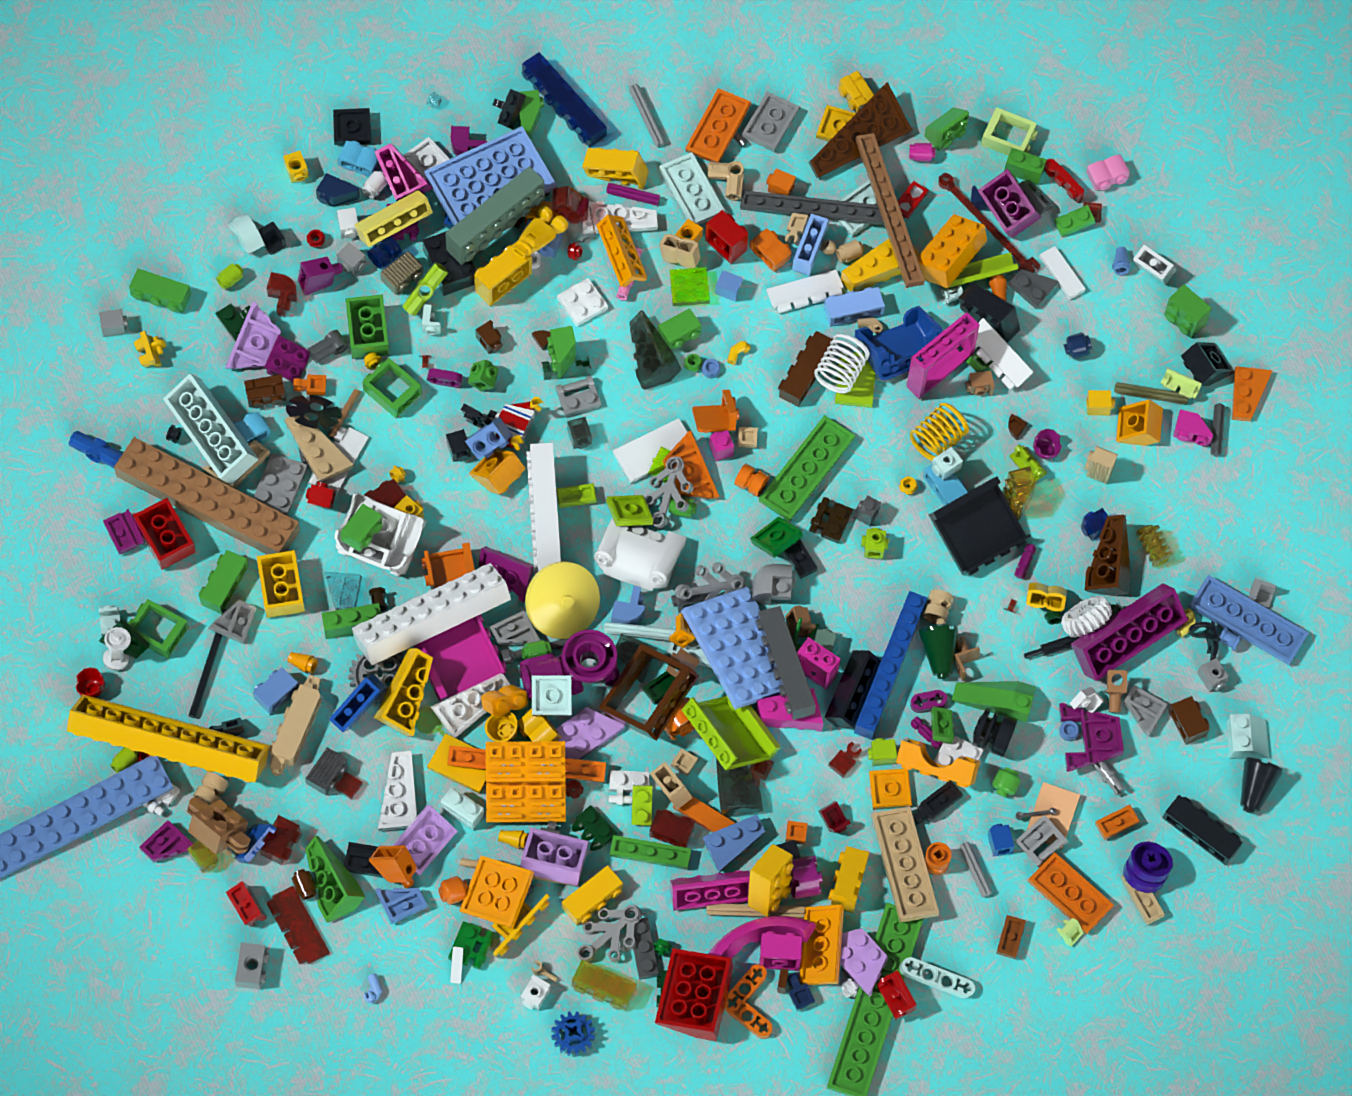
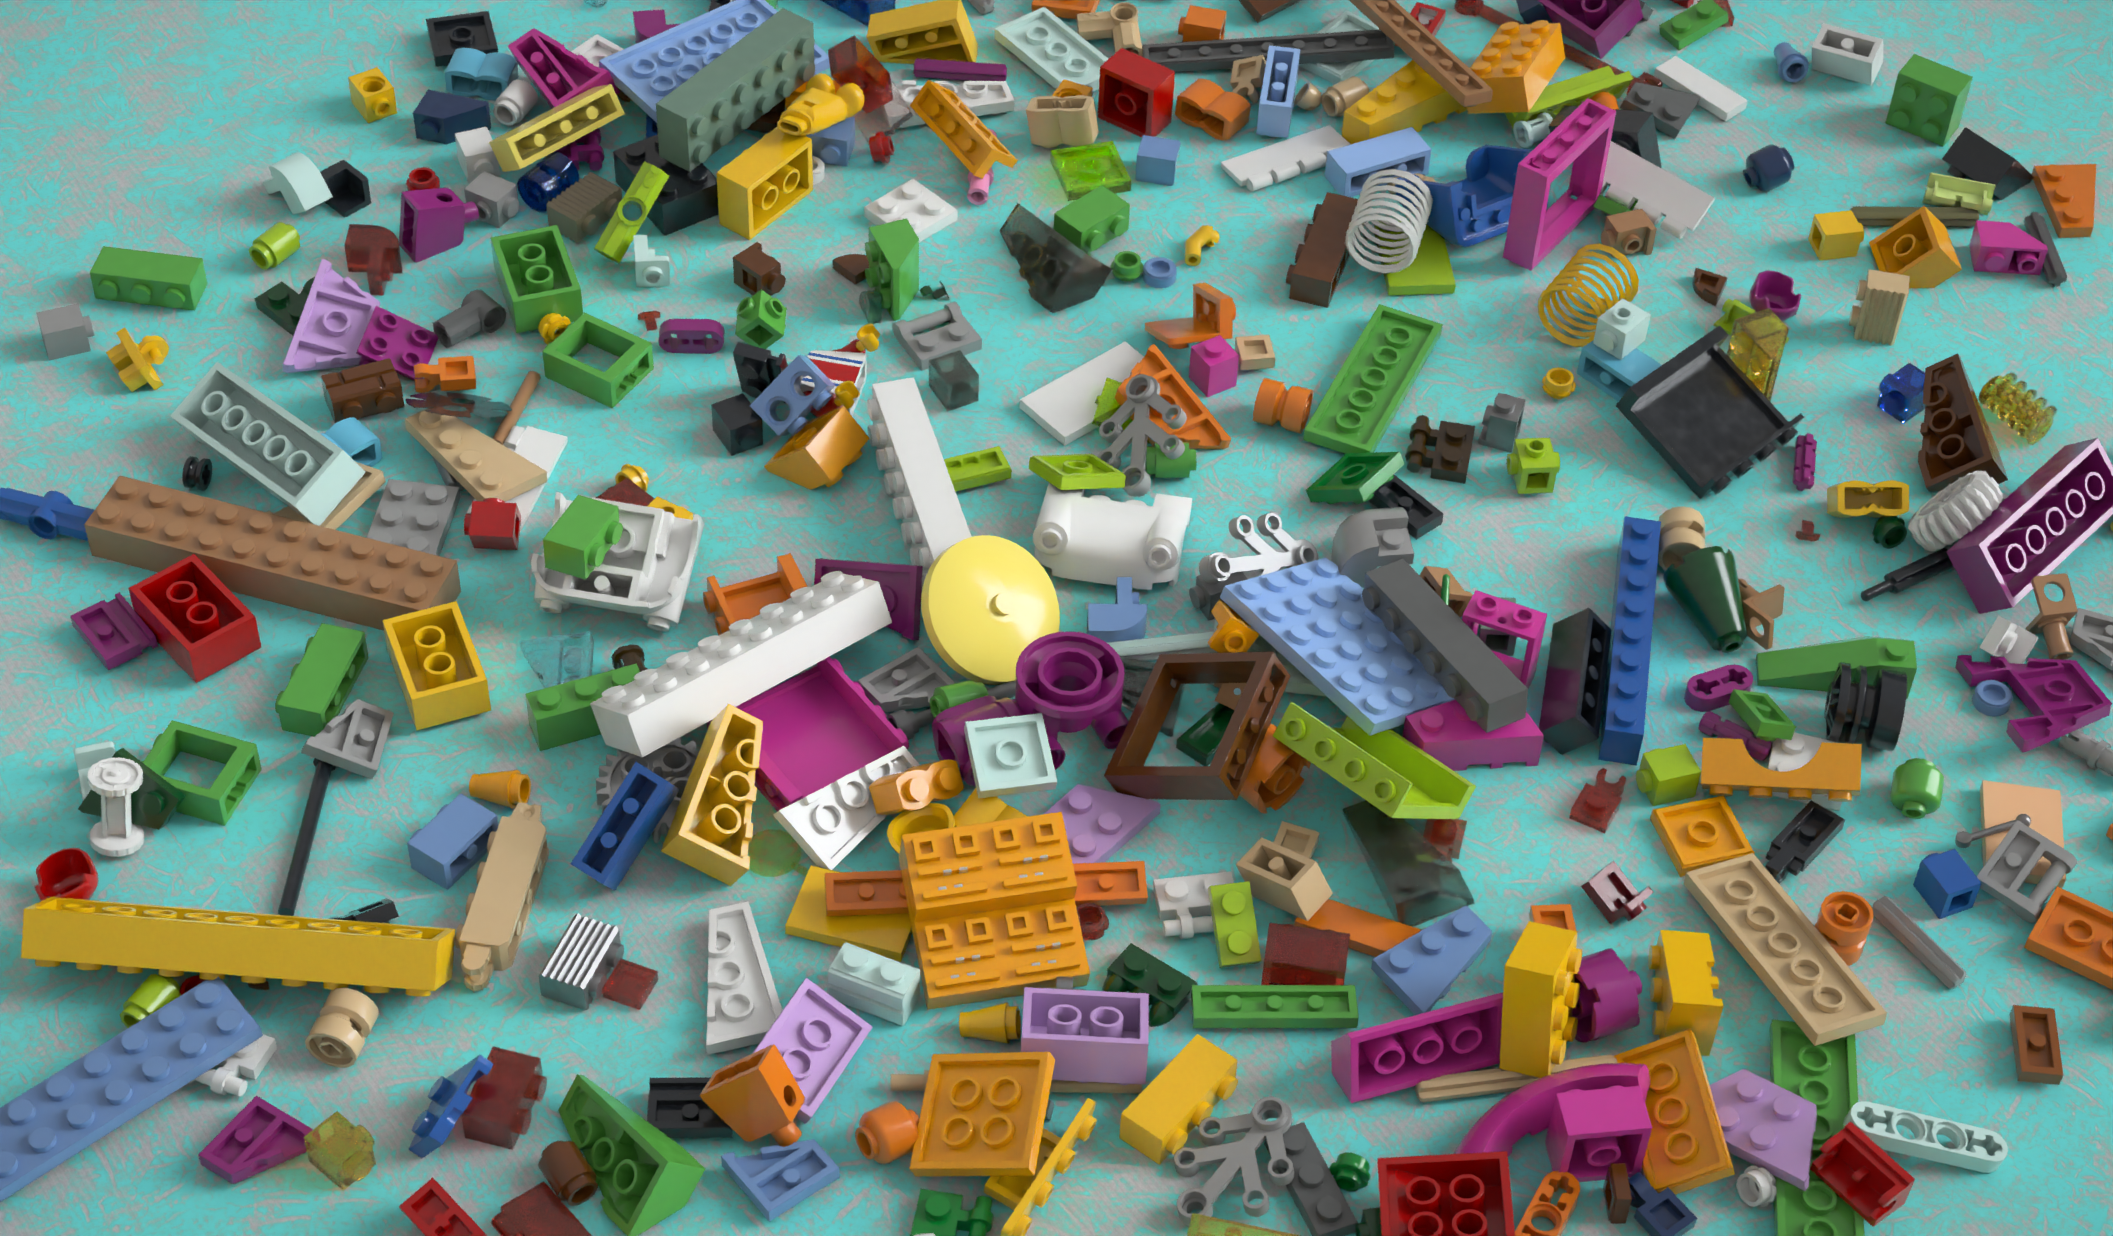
camera: 10 degrees left, 20 degrees down
(217, 826) = (365, 1083): medium nougat brick -> none

